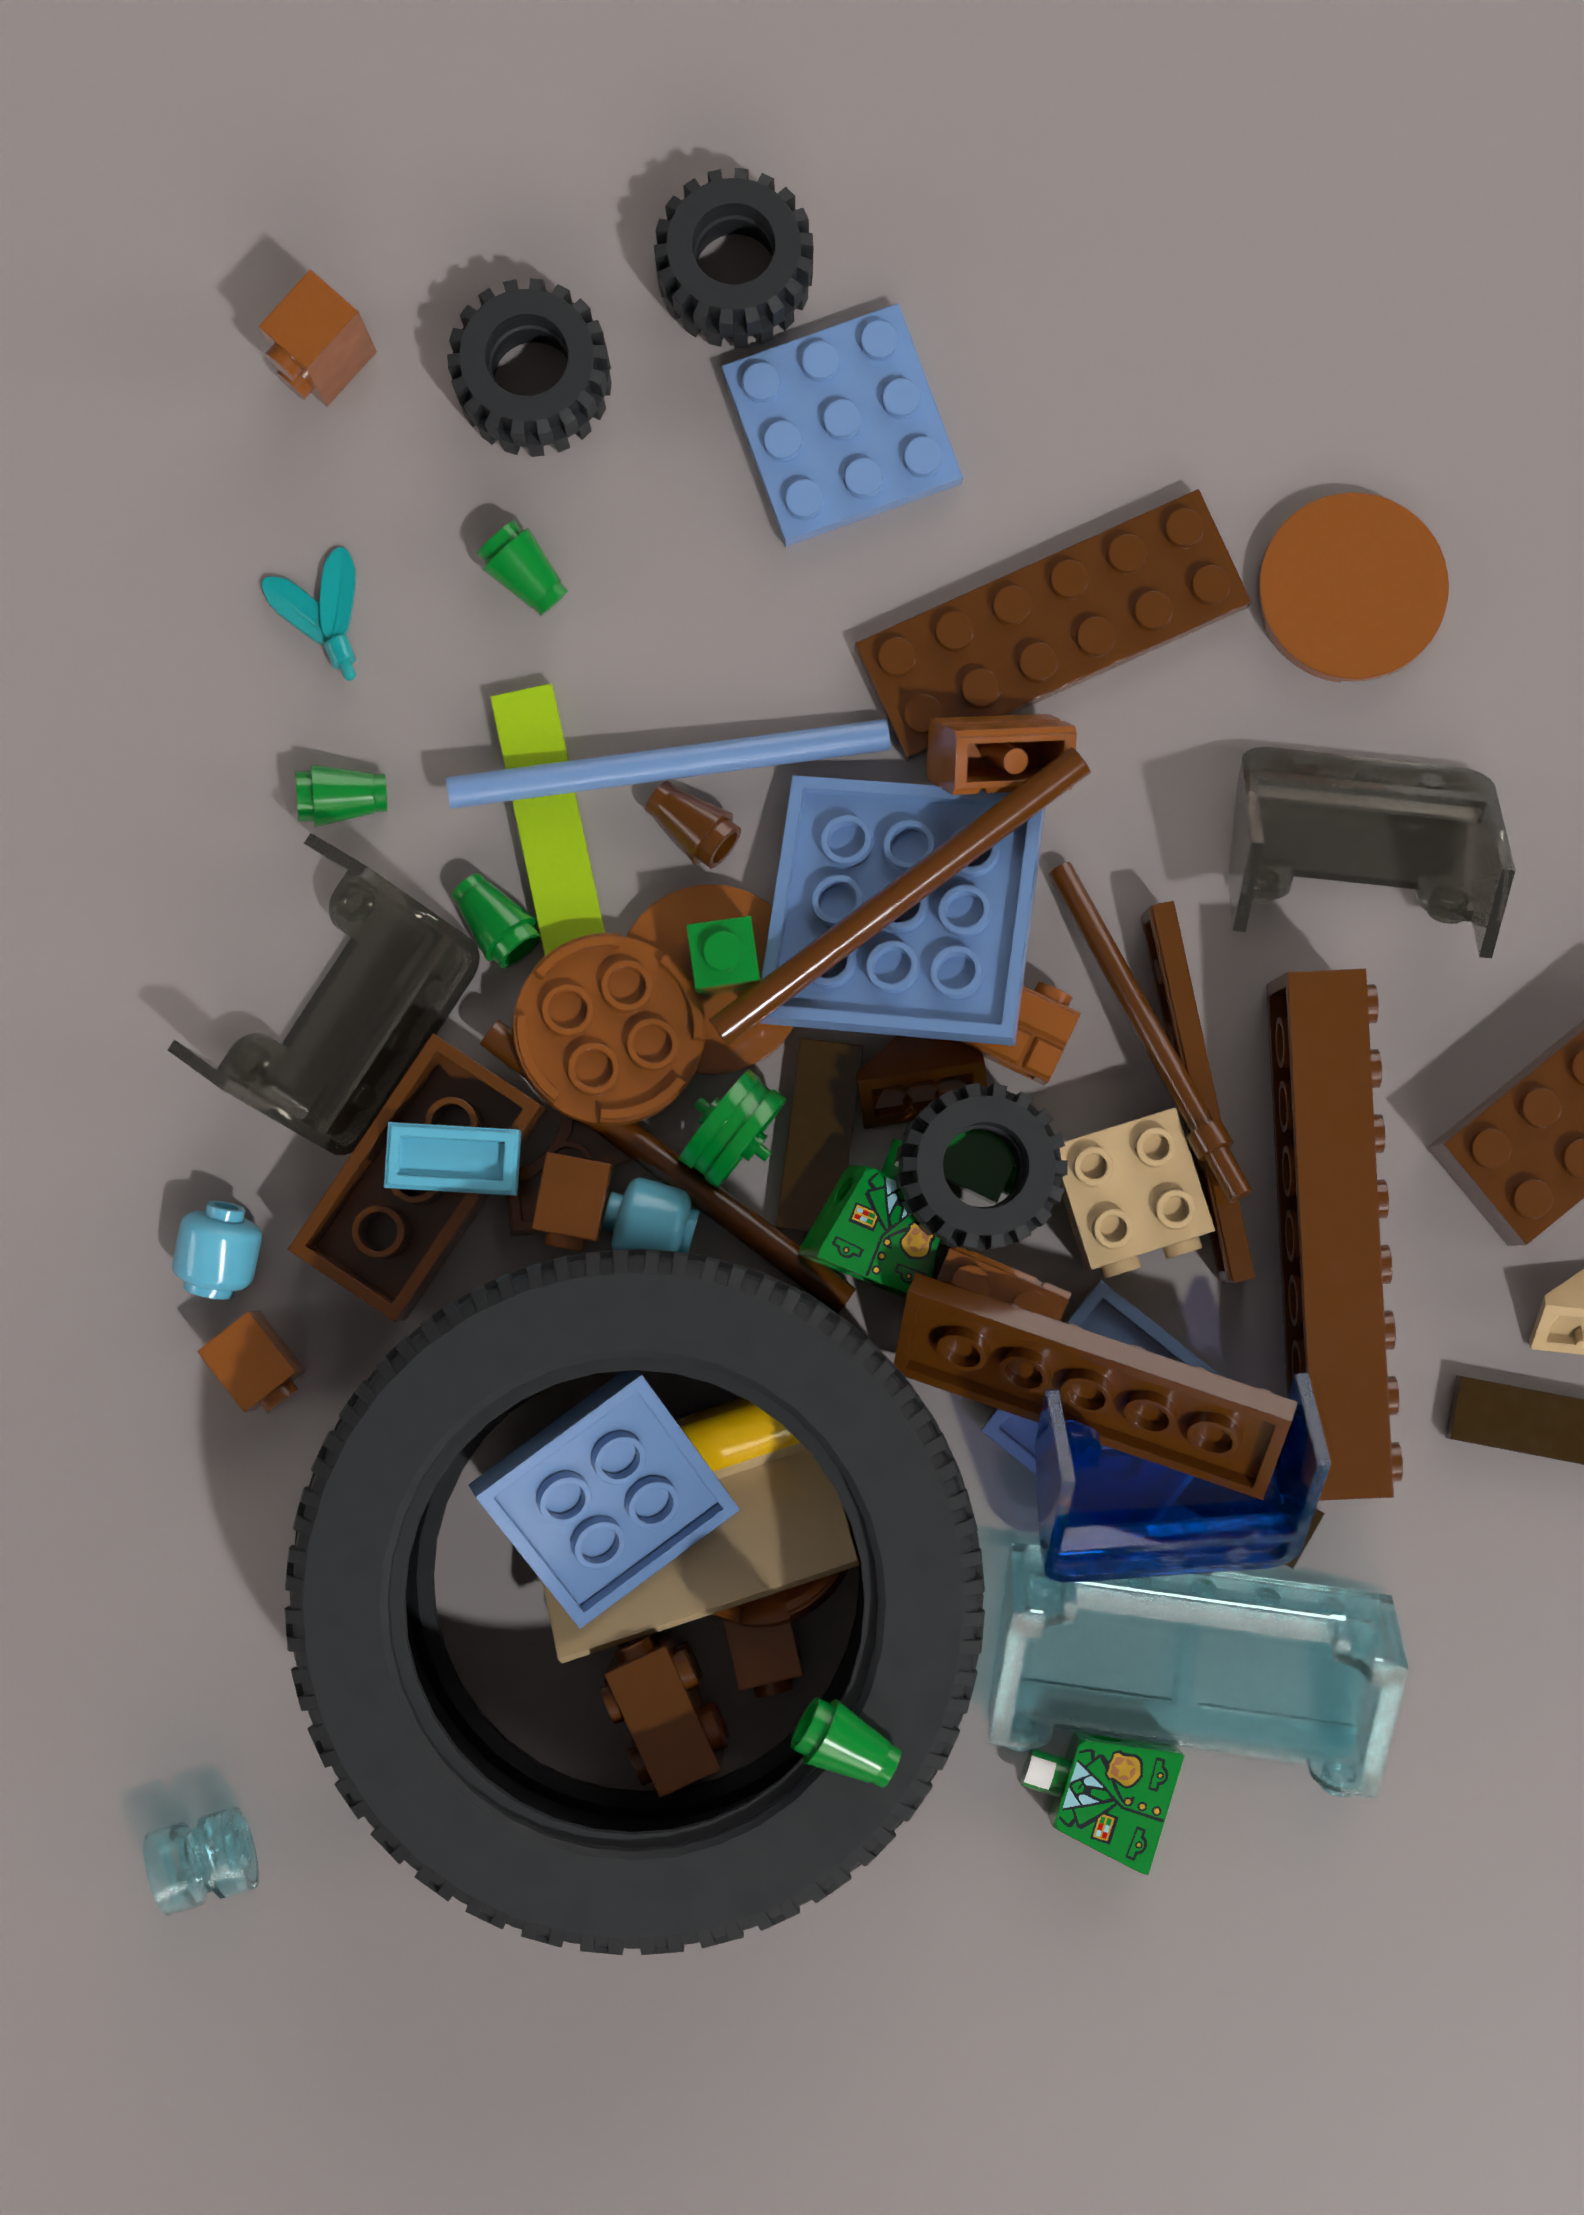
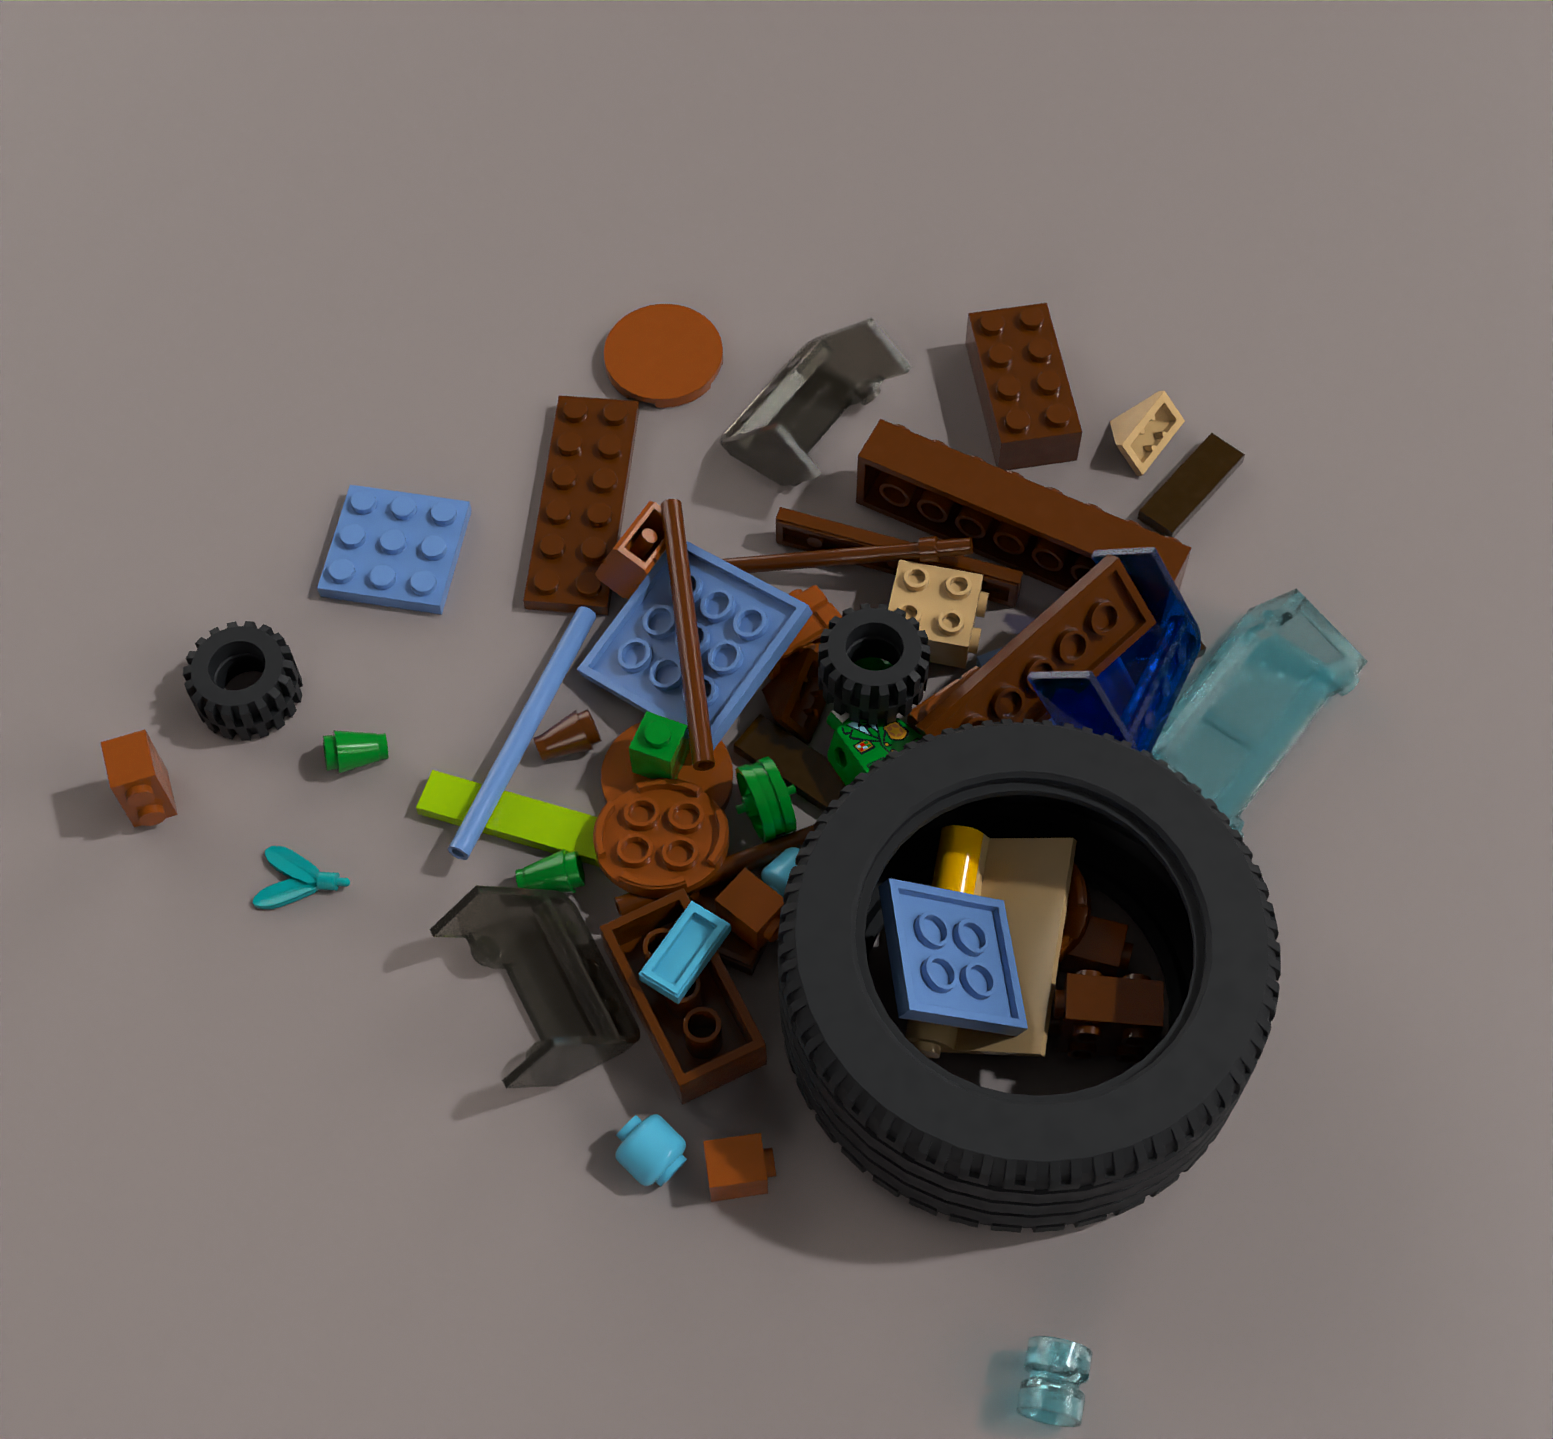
camera: 60 degrees left, 25 degrees down
(338, 794) = (411, 926): green cone -> none
(725, 209) = (260, 519): black tyre -> none
(844, 1744) = (1182, 849): green cone -> none
(1109, 1793) = (1294, 806): green torso -> none

